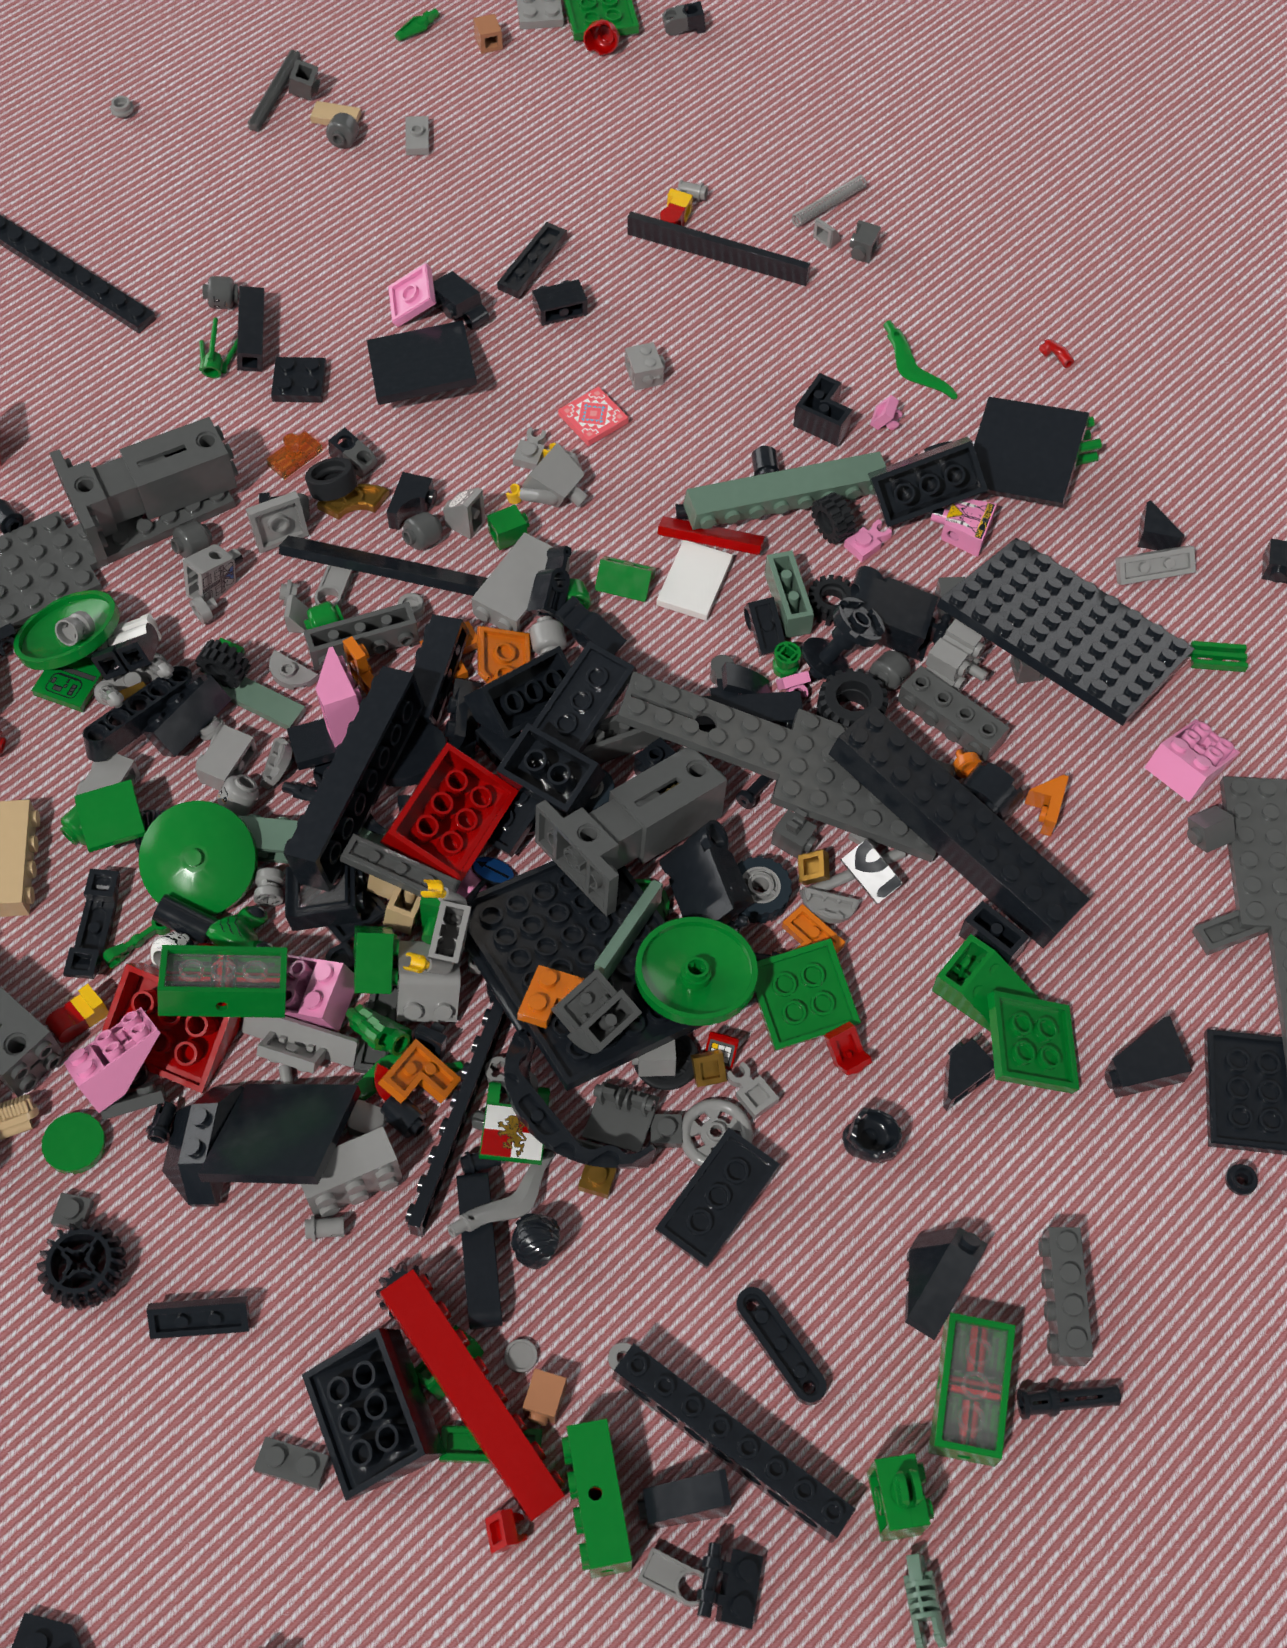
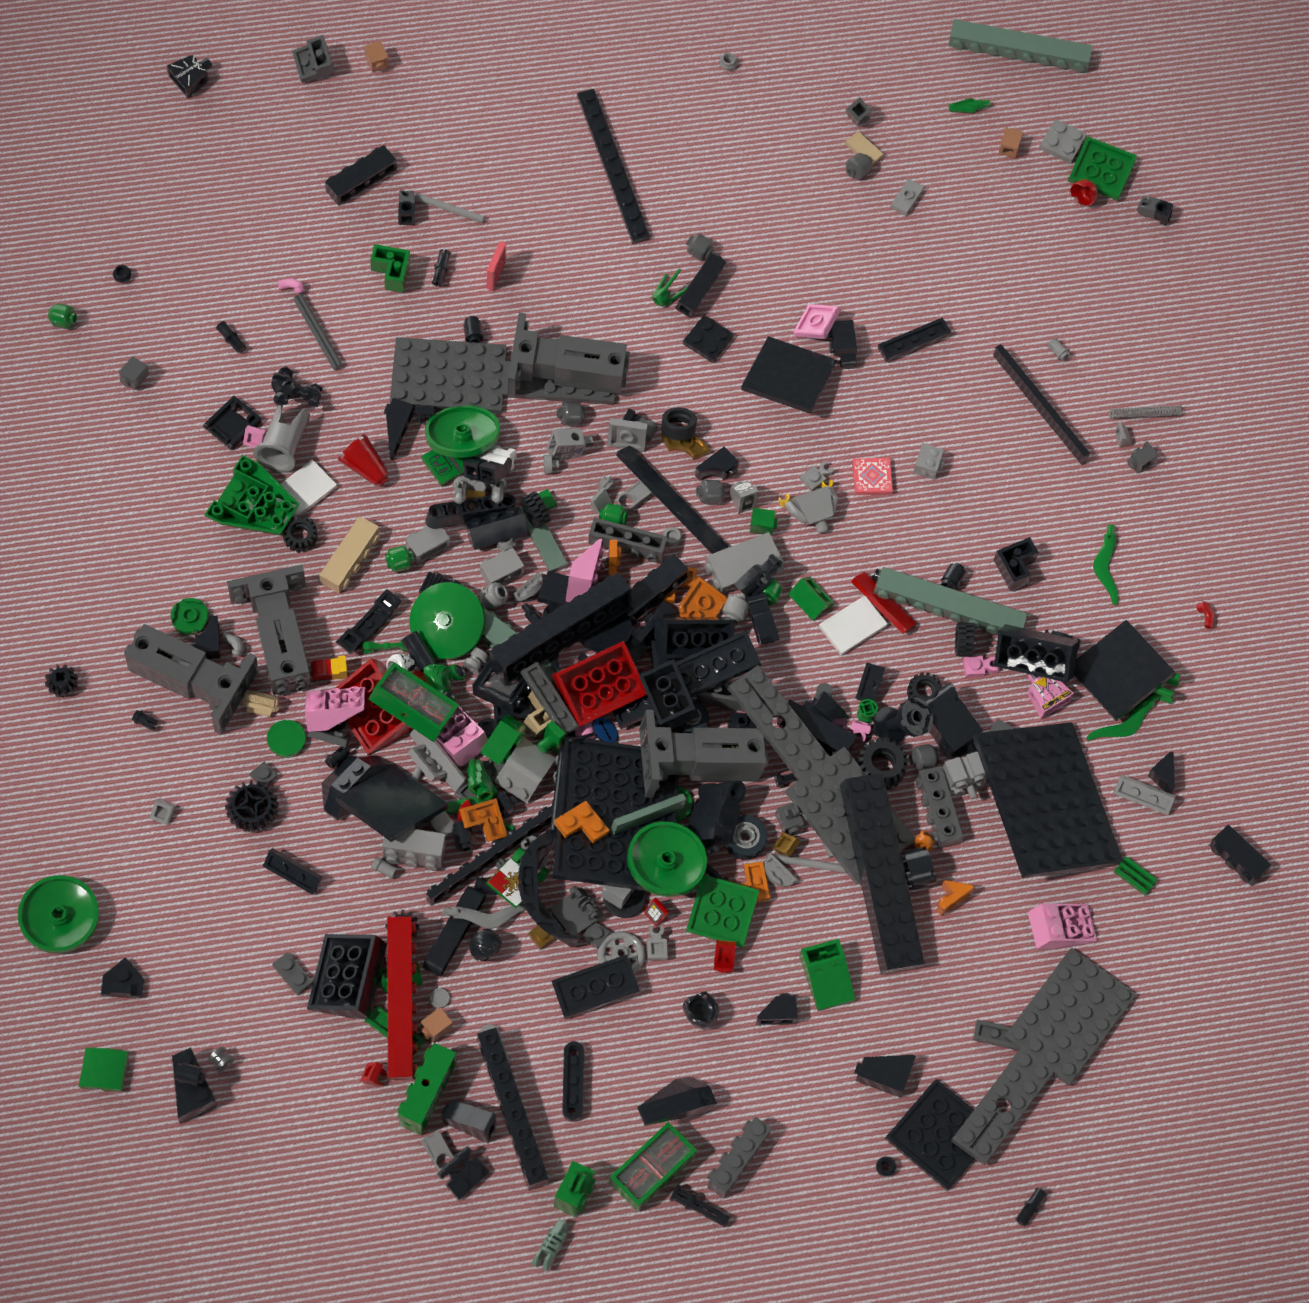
camera: 30 degrees right, 5 degrees up
(75, 628) = (466, 436): light grey wheel -> none
(110, 815) = (415, 565): green slope -> none
(273, 91) = (836, 105): dark grey axle -> none
(290, 673) = (572, 535): light grey plate -> none
(294, 454) = (670, 390): clear orange tile -> none
(353, 450) = (704, 412): leg -> none
(448, 934) = (549, 752): light grey torso -> none
(559, 302) = (908, 382): black brick -> none
(595, 1012) = (595, 846): dark grey brick -> none
(678, 207) = (1037, 359): leg -> none
(709, 1068) = (642, 917): pearl gold plate -> none
(789, 594) = (898, 671): sand green brick -> none
(871, 871) = (815, 868): slope -> none
(886, 414) = (1056, 588): bright pink tile -> none
(995, 932) = (855, 948): black brick -> none
(1032, 1042) = (828, 1019): green plate -> none
(1075, 509) = (1131, 725): none -> green piece
(1211, 829) = (1033, 972): dark grey brick -> none

